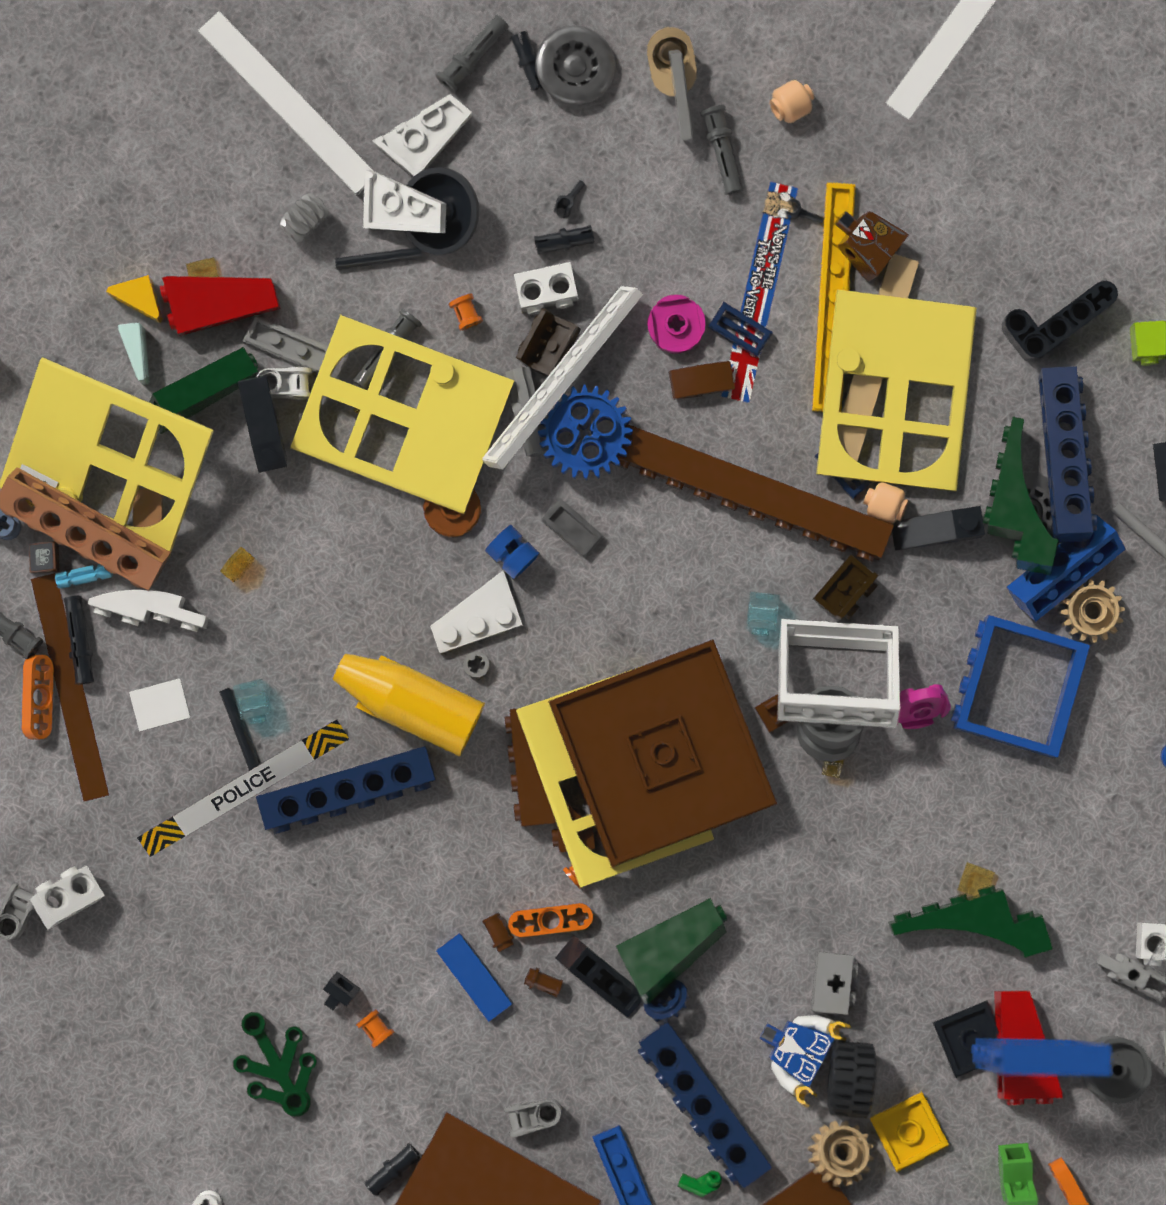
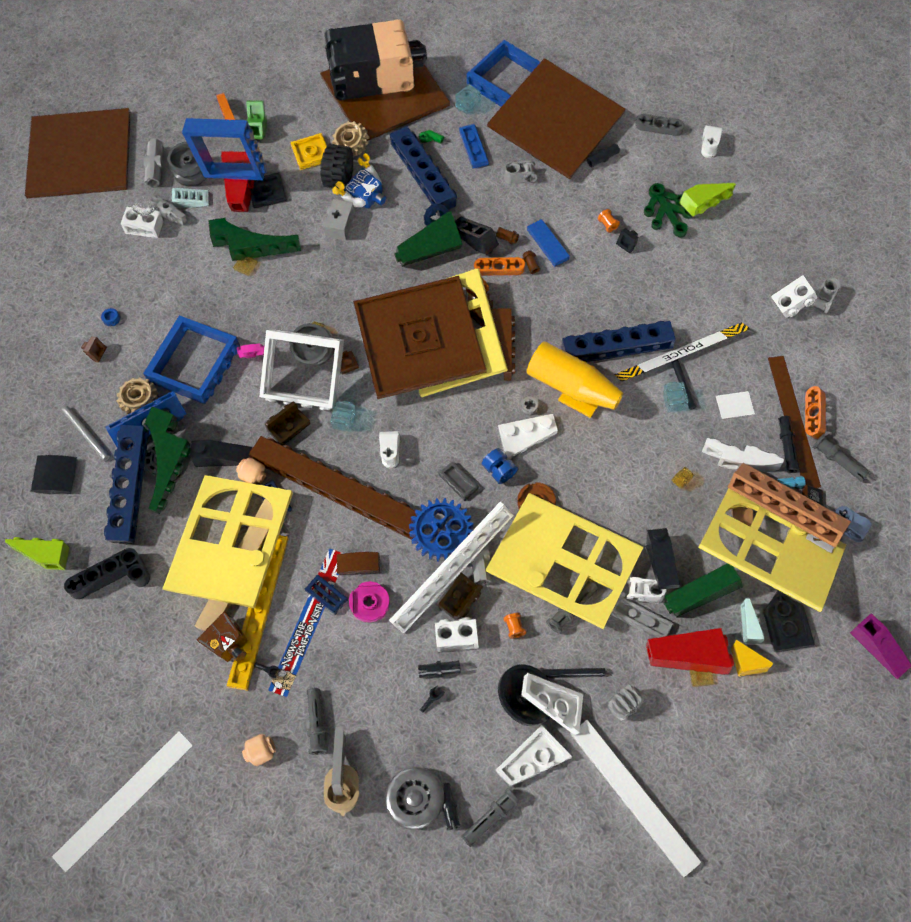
camera: 170 degrees left, 20 degrees down
(85, 350) = (787, 624): none -> black tile
(221, 1086) = (703, 196): none -> lime slope
(684, 573) = (390, 447): none -> white piece
(1124, 1000) = (190, 193): none -> light aqua slope

